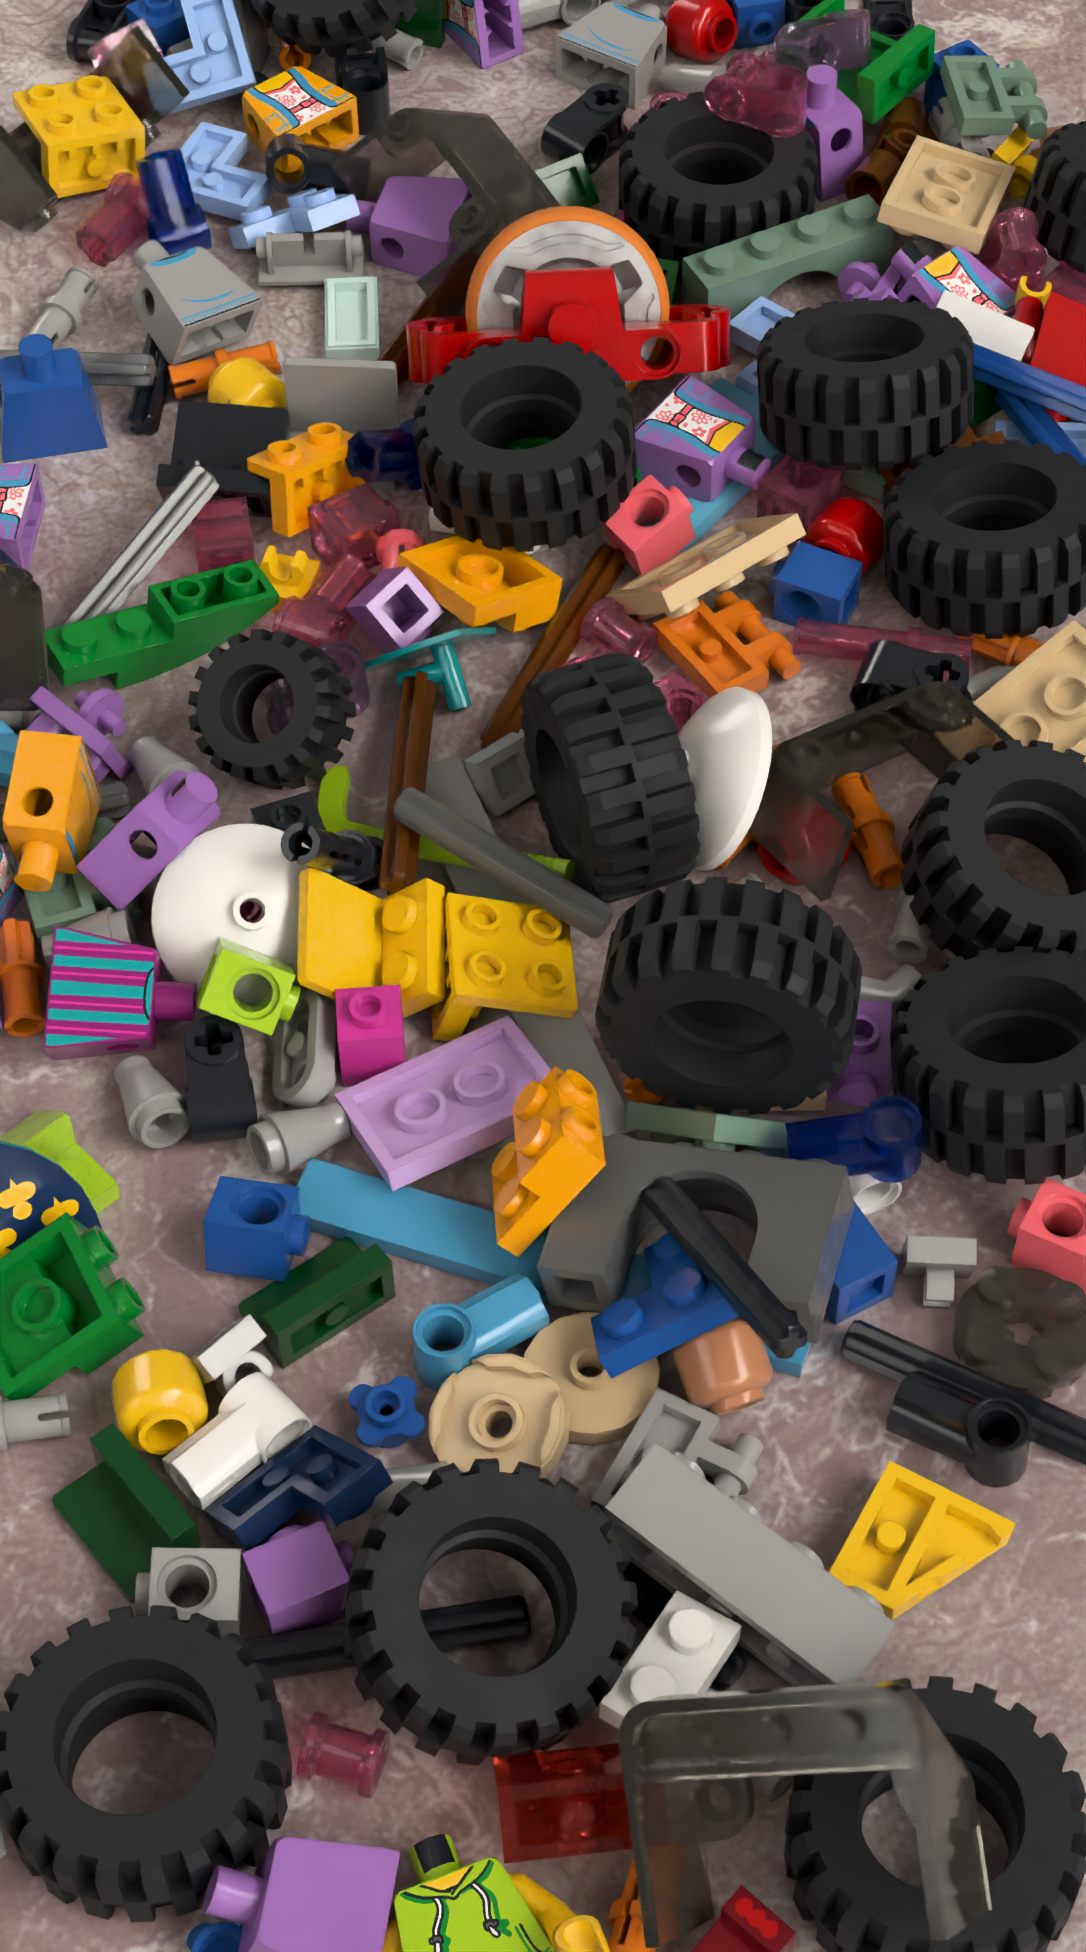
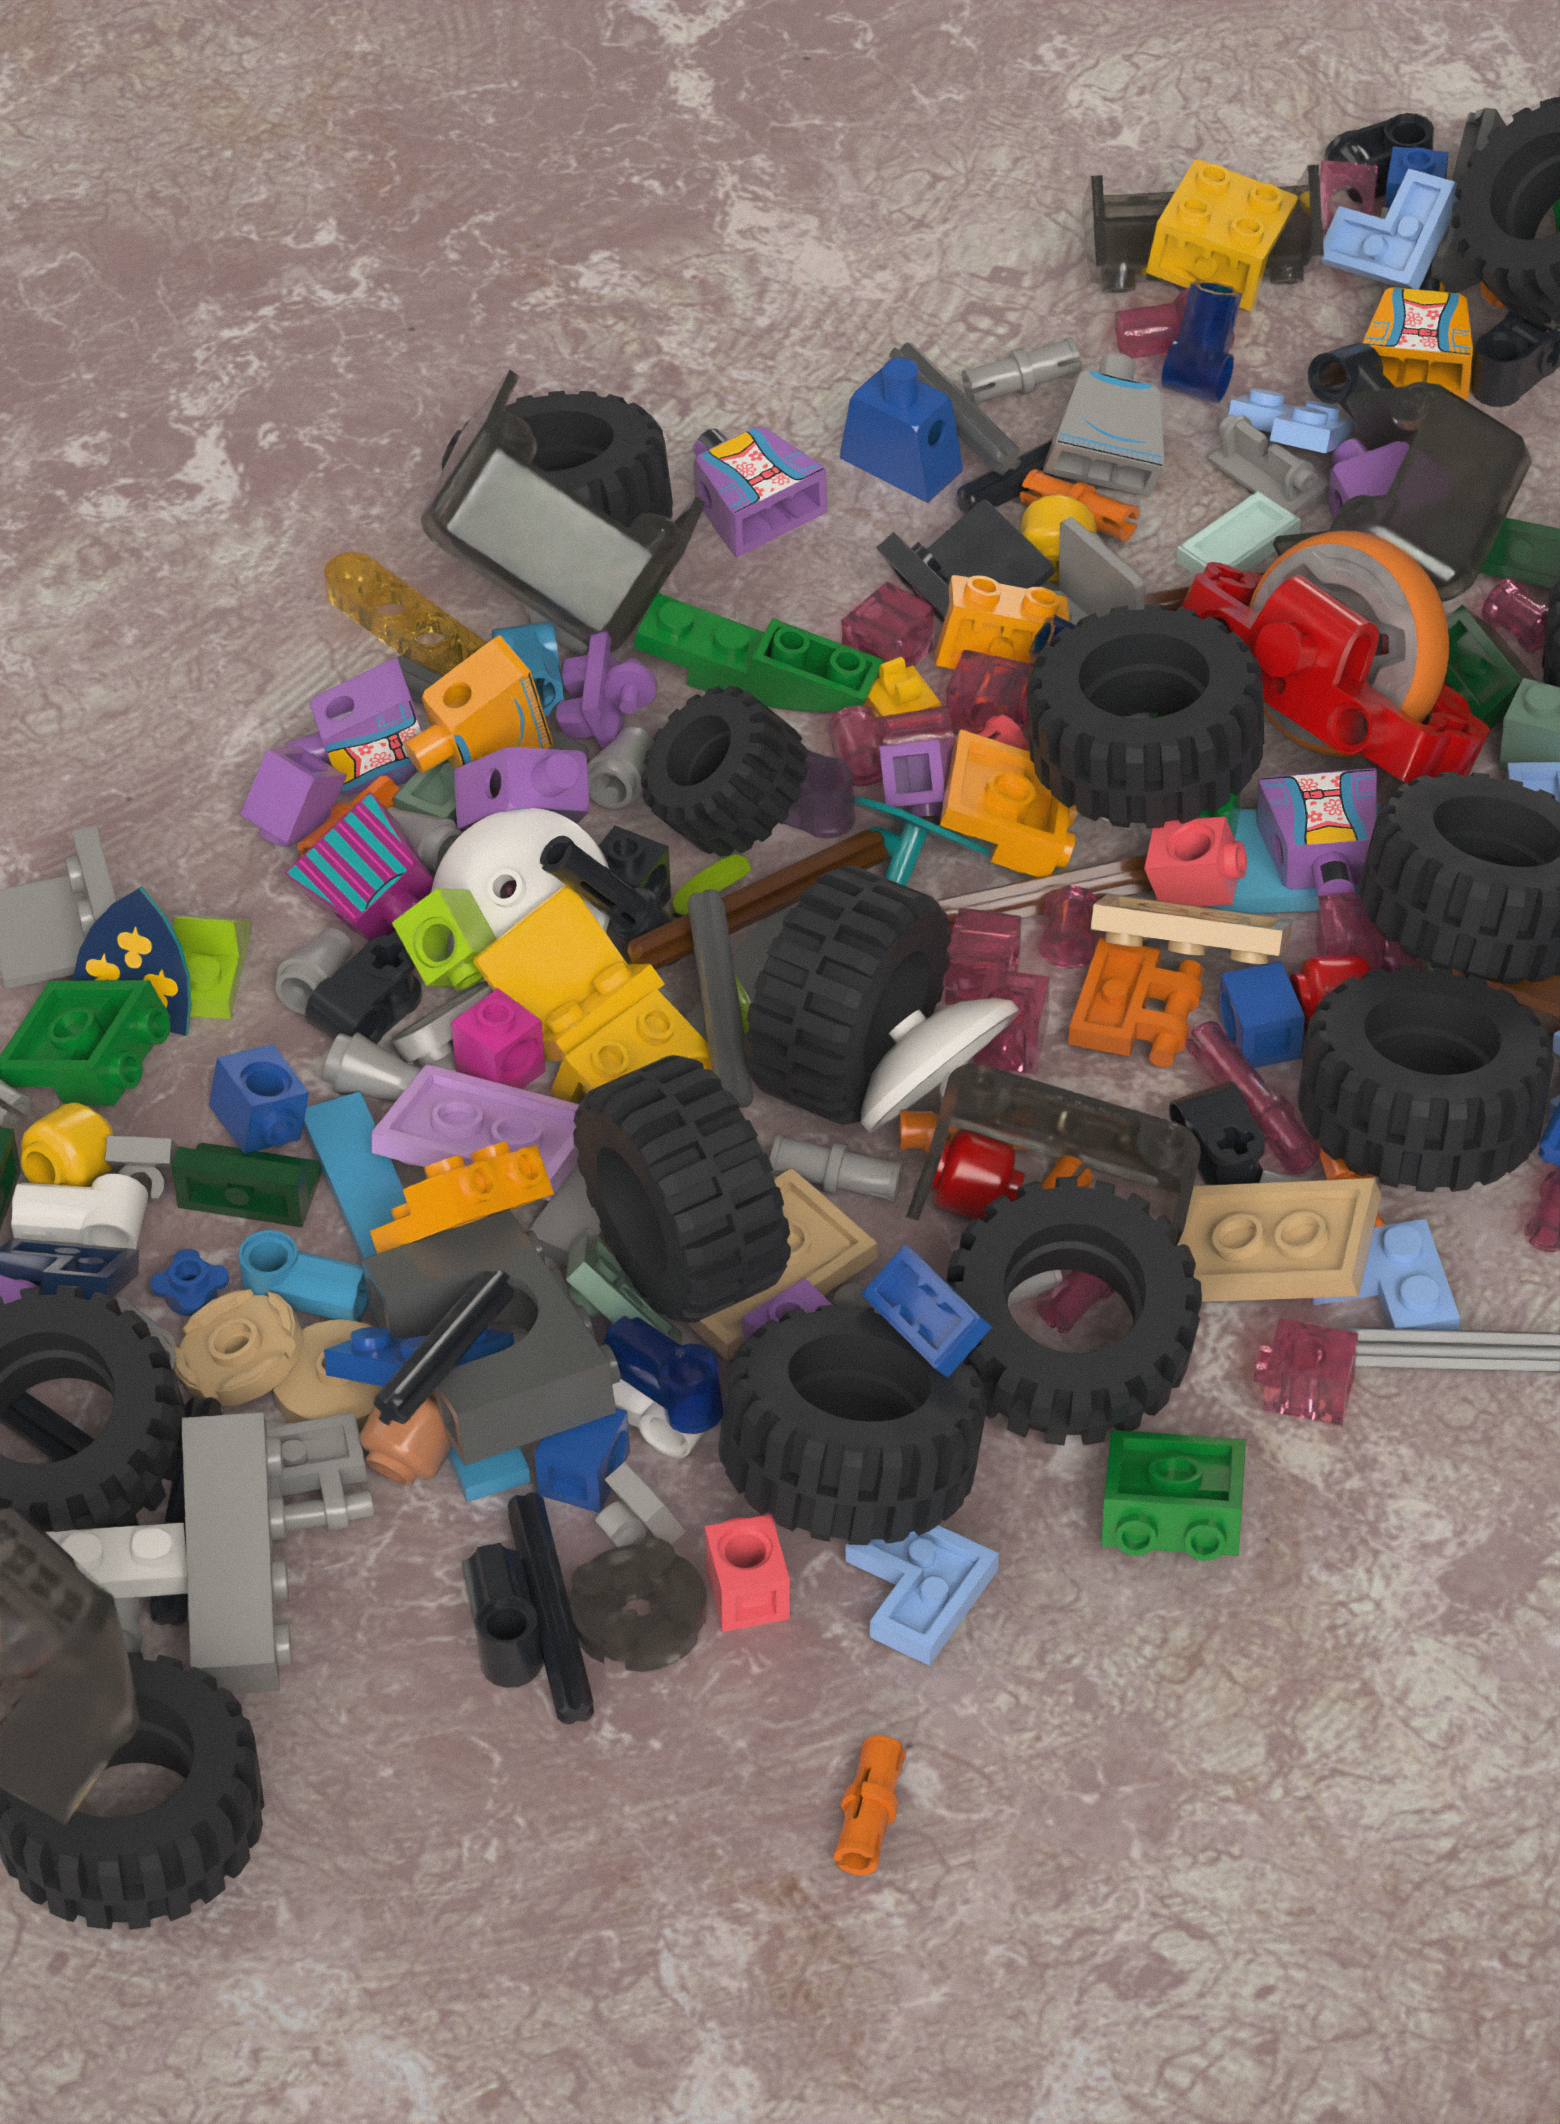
camera: 50 degrees right, 5 degrees down
(147, 546) = (815, 589): axle -> none
(212, 171) = (1287, 335): light blue plate -> none
(915, 1540) = (373, 1647): yellow wing -> none
(990, 934) = (926, 1310): none -> blue plate

